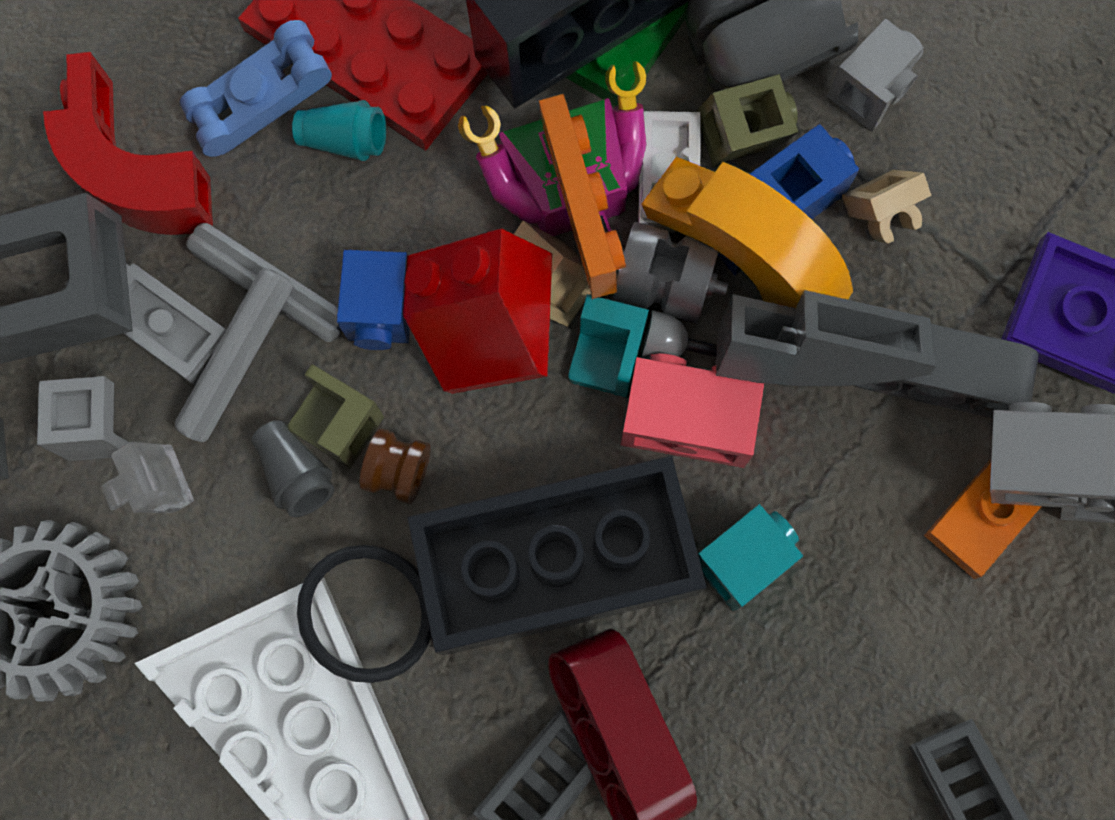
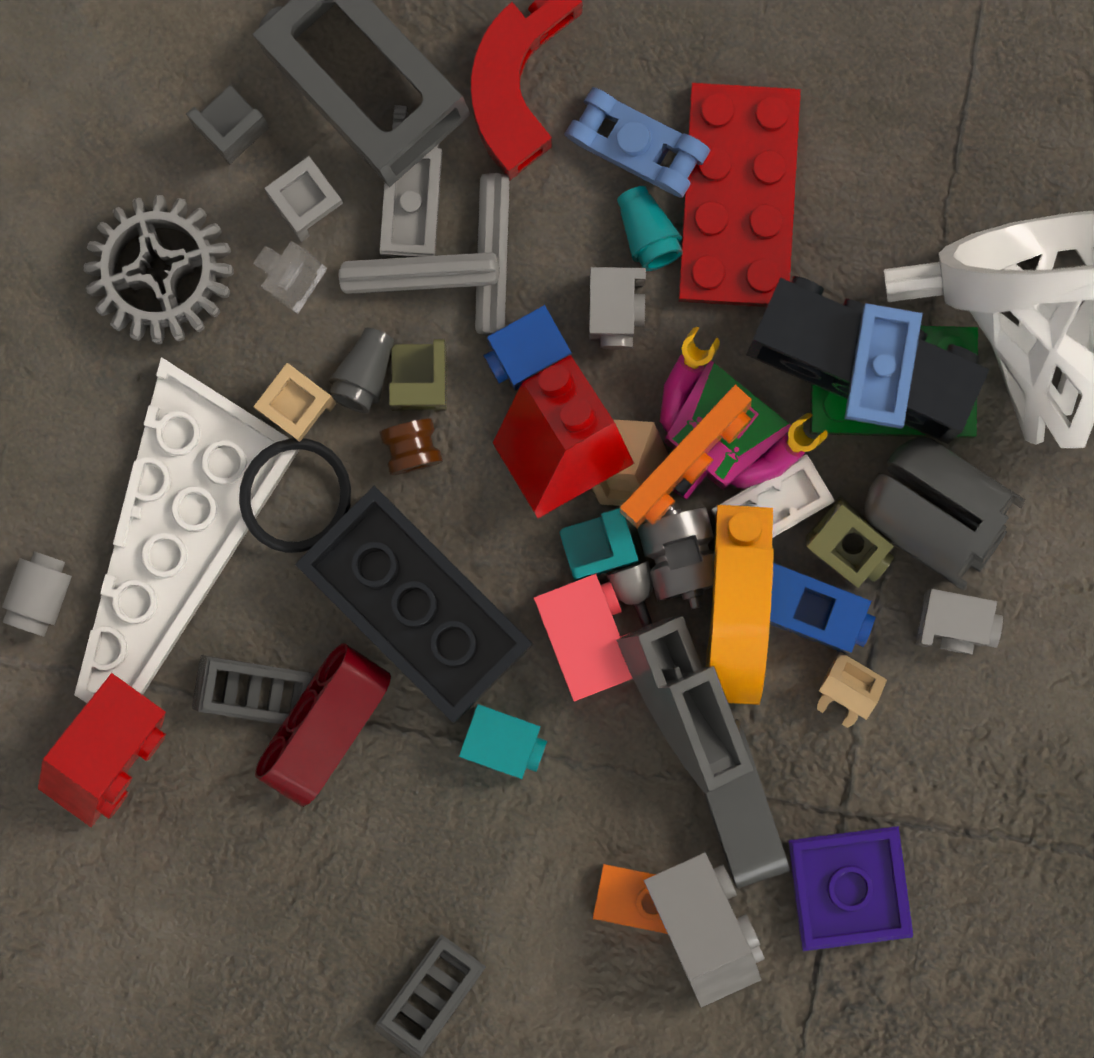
camera: 60 degrees right, 10 degrees up
(270, 551) = (294, 402): none -> tan panel
(389, 196) = (615, 306): none -> light grey brick

